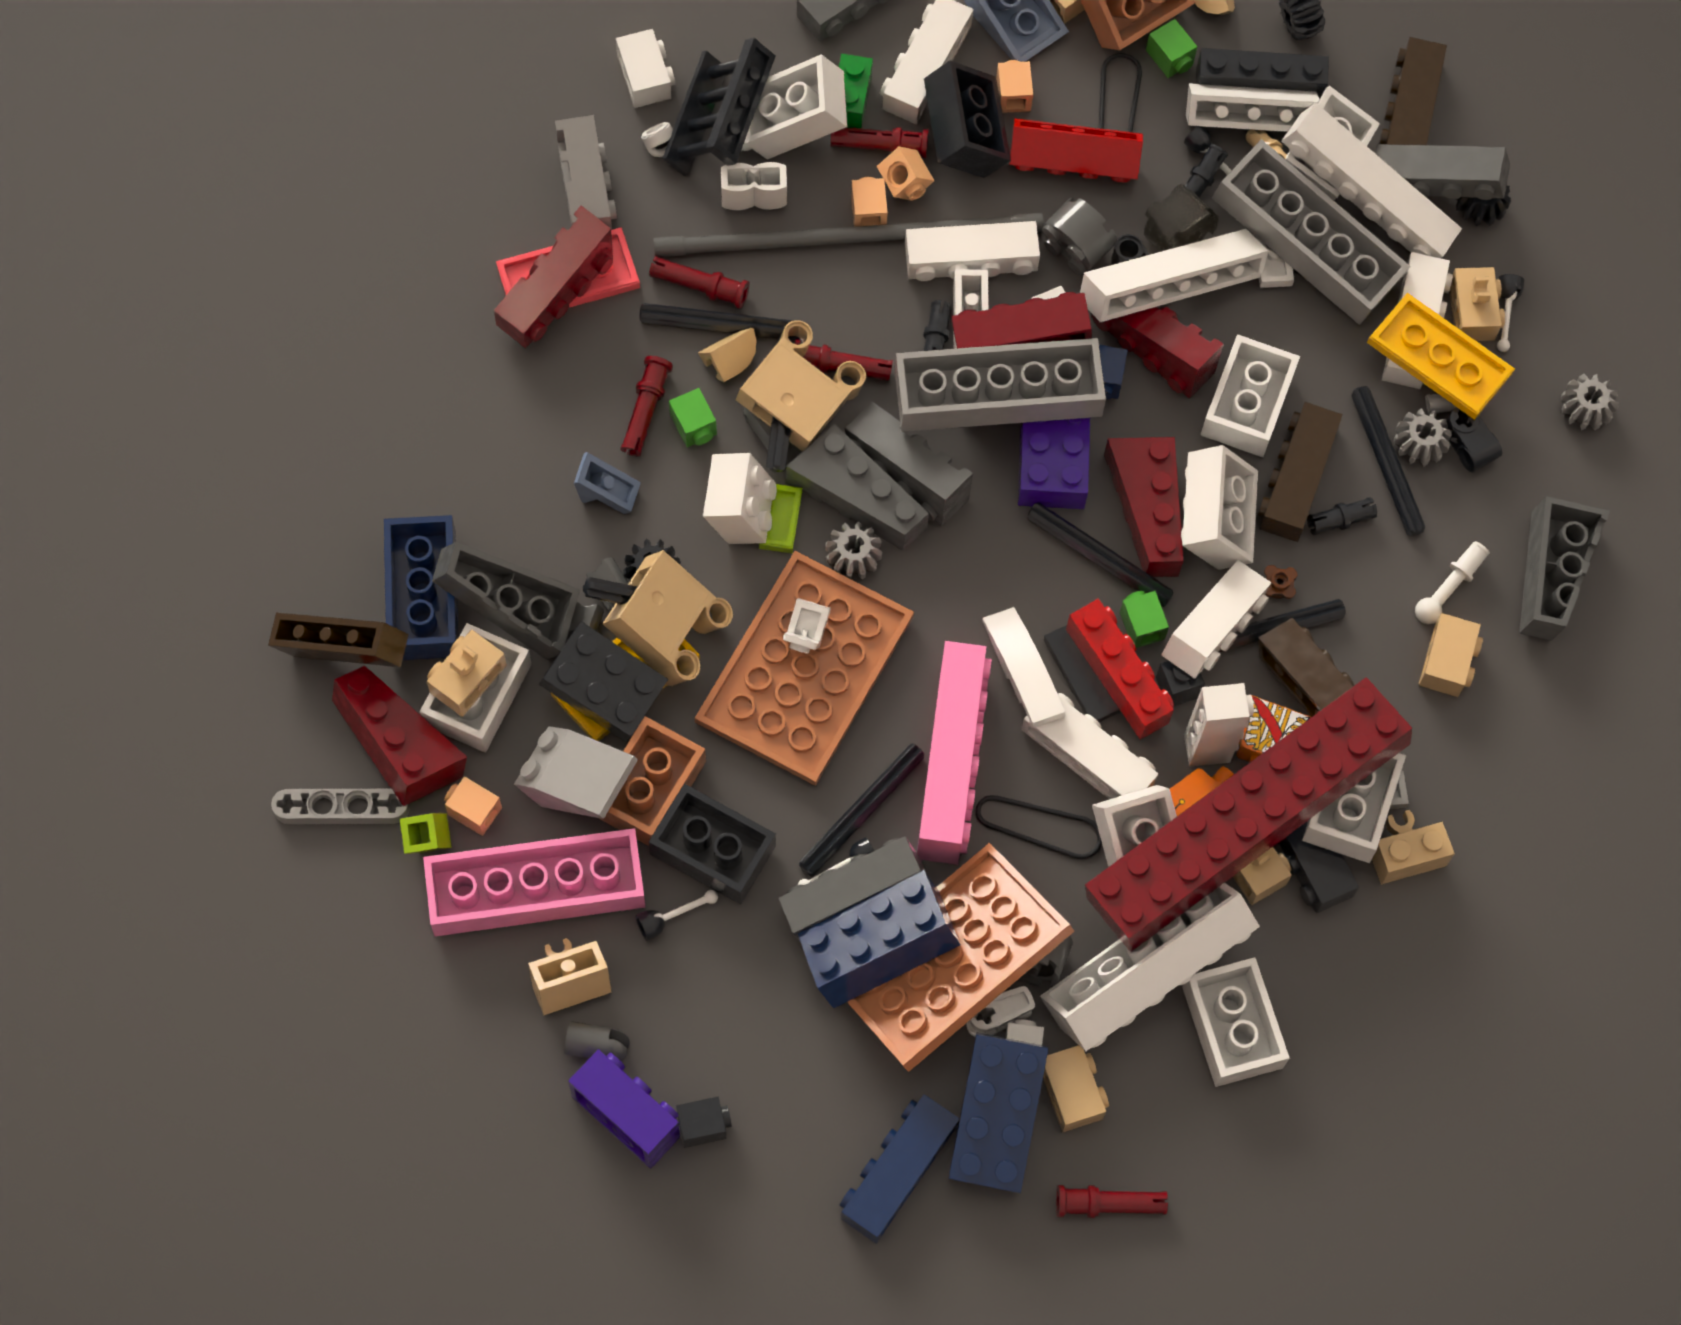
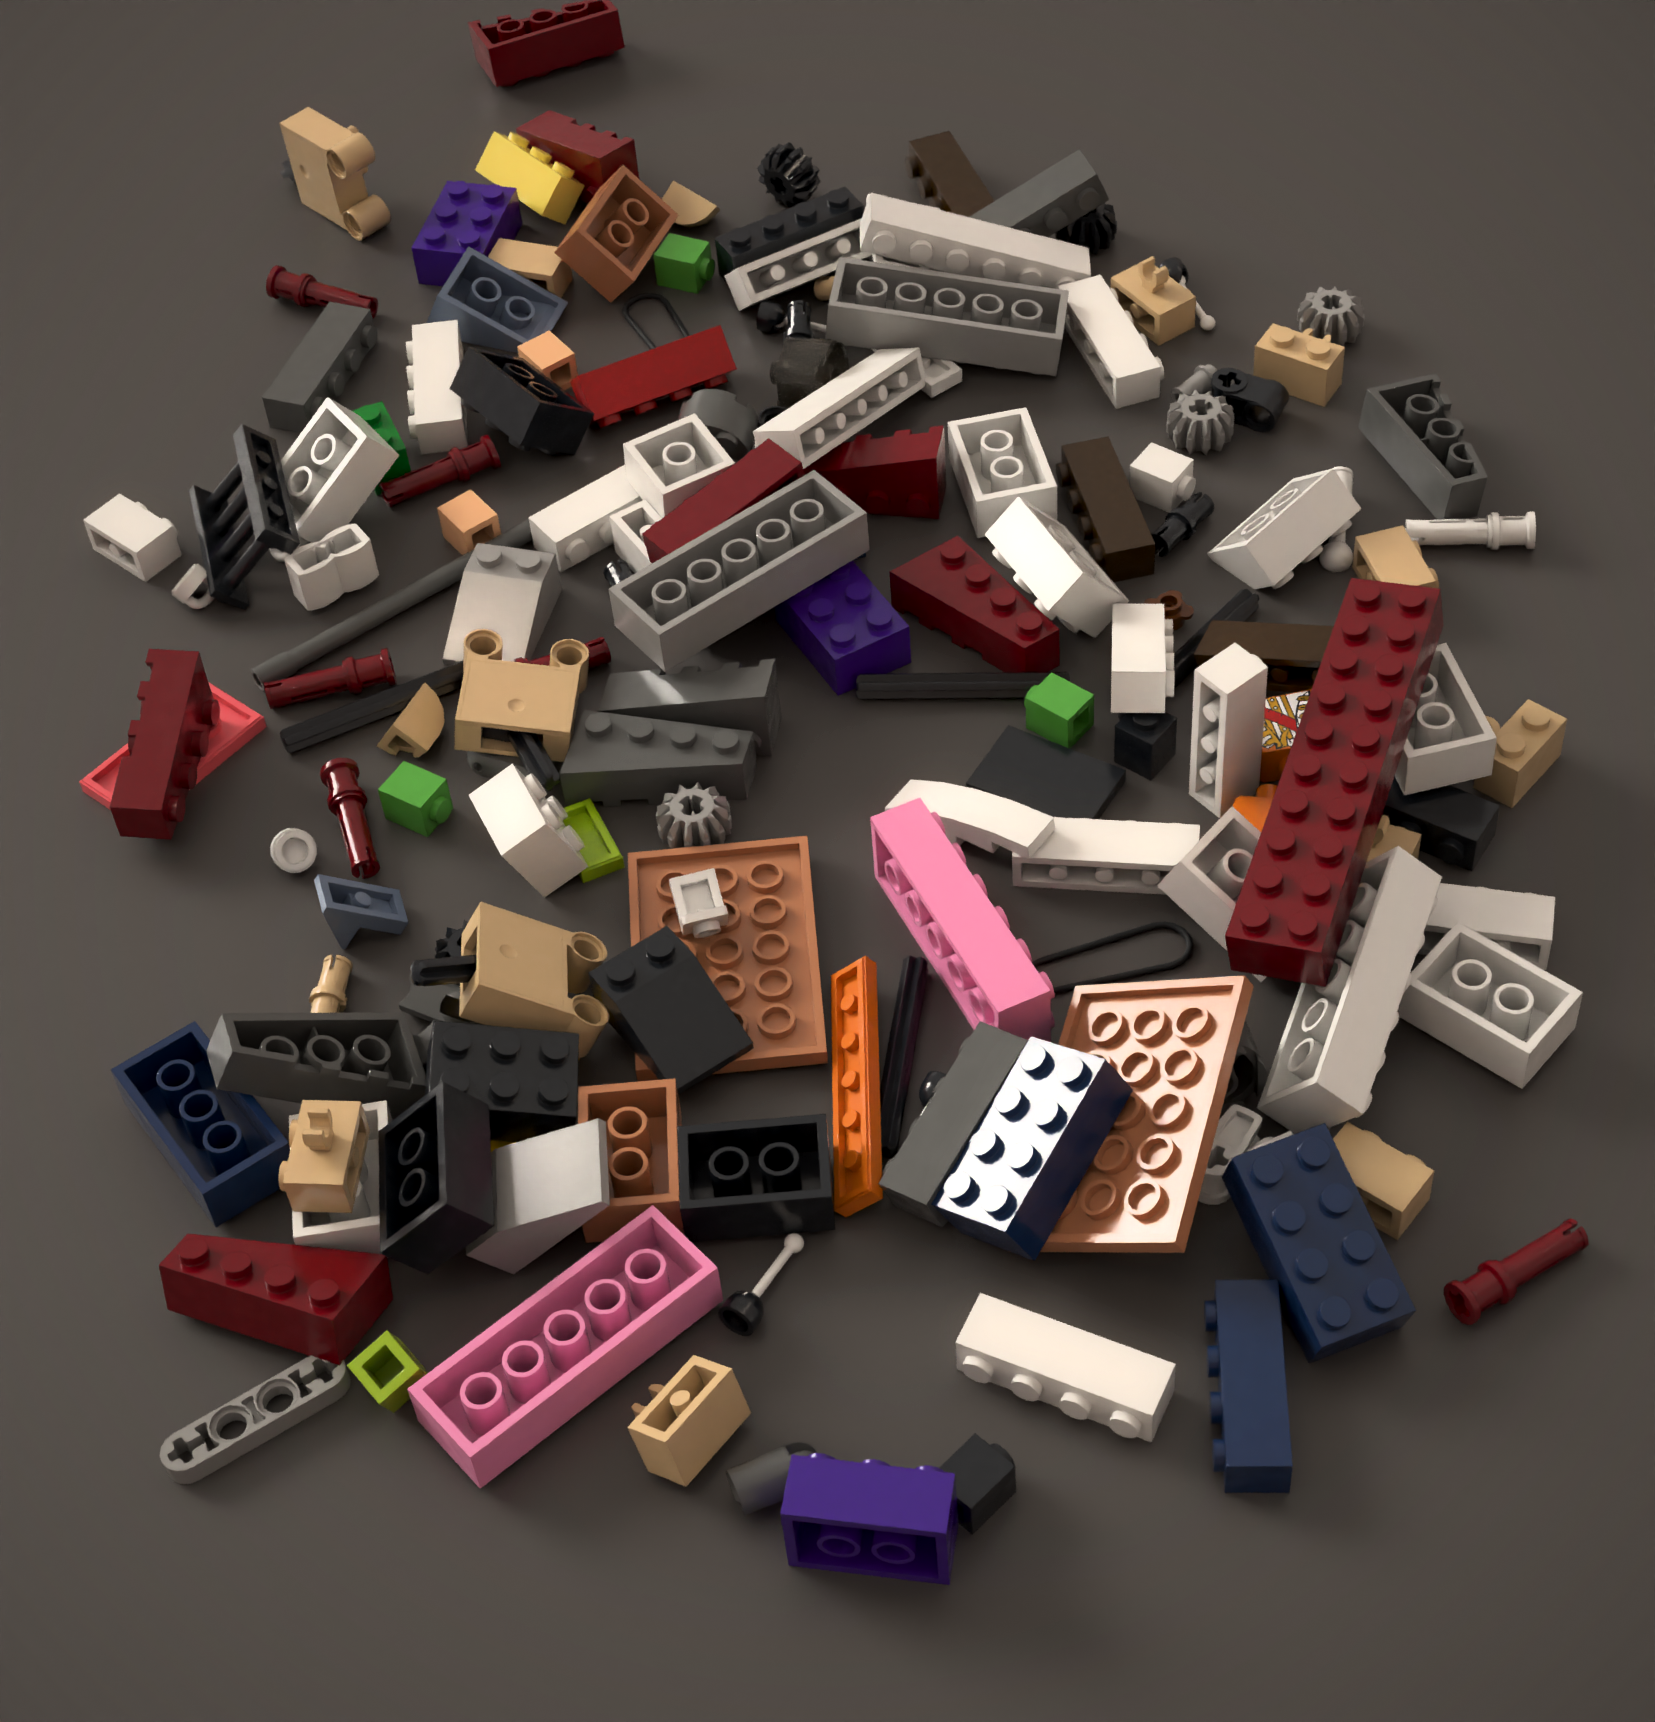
camera: 25 degrees left, 20 degrees down
(338, 639) = (135, 1218): dark brown brick -> none
(472, 805) = (428, 1313): light nougat brick -> none
(519, 730) = (435, 1178): none -> black brick
(548, 538) = (330, 992): none -> tan pin
(582, 168) = (114, 635): light grey wedge -> none
(594, 408) = (293, 850): none -> white tile
(736, 695) = (669, 1010): none -> black slope
(803, 1085) = (1065, 1367): none -> white brick
(818, 814) = (856, 1087): none -> orange tile
(844, 292) = (505, 593): none -> light grey slope
(895, 170) = (477, 475): light nougat brick -> none
(1022, 263) = (674, 463): none -> white brick
(1120, 669) = (1075, 757): red brick -> none
(1286, 961) = (1506, 917): none -> white brick
(1358, 469) = (1162, 477): none -> white brick
(1388, 461) = (1204, 470): black axle -> none
(1403, 572) = (1287, 530): none -> white slope
(1441, 356) = (1161, 342): yellow tile -> none
(1532, 430) = (1301, 363): none -> tan brick
(1547, 662) = (1492, 531): none -> white pin

